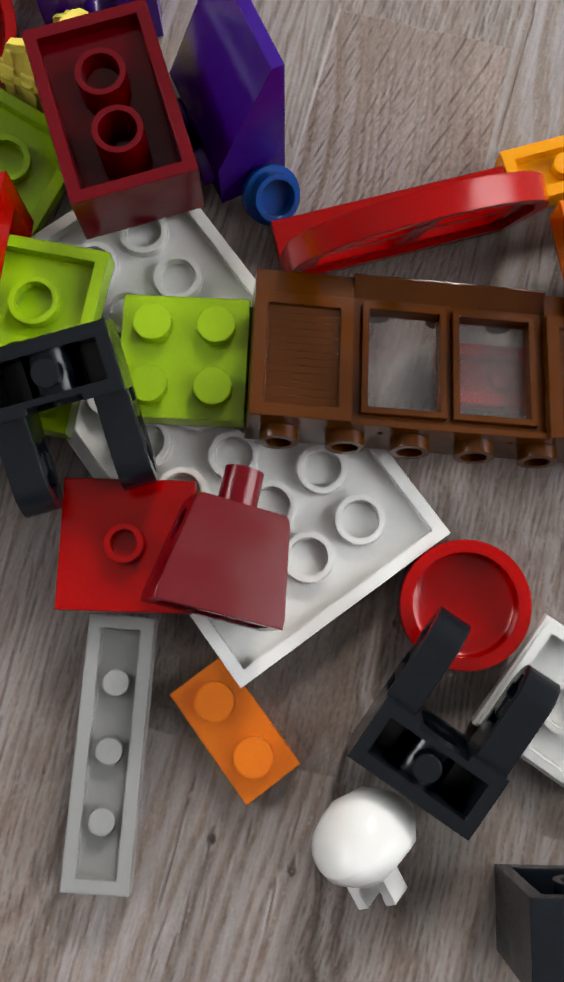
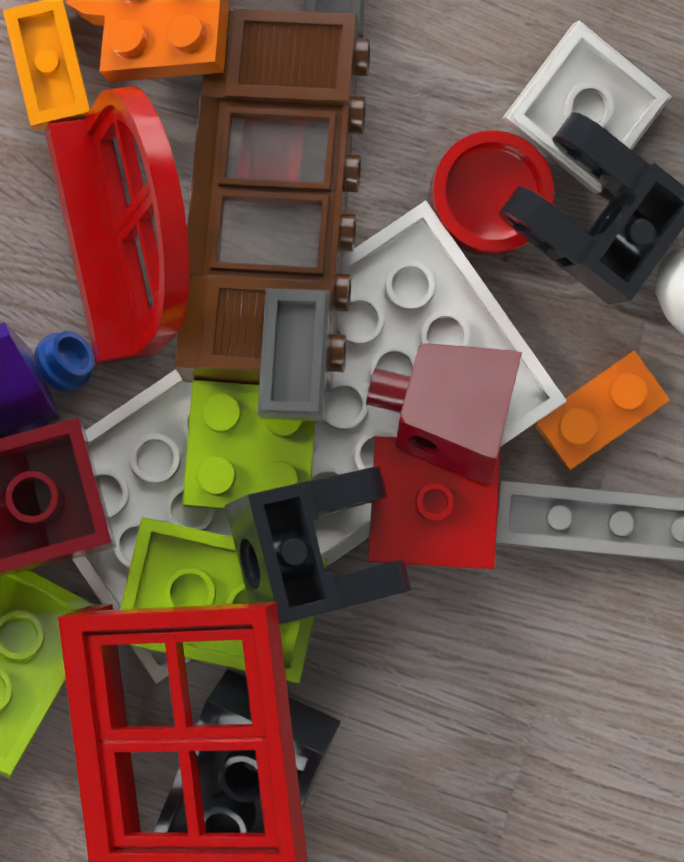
camera: 95 degrees left, 5 degrees up
(268, 378) = (294, 354): none -> dark grey tile

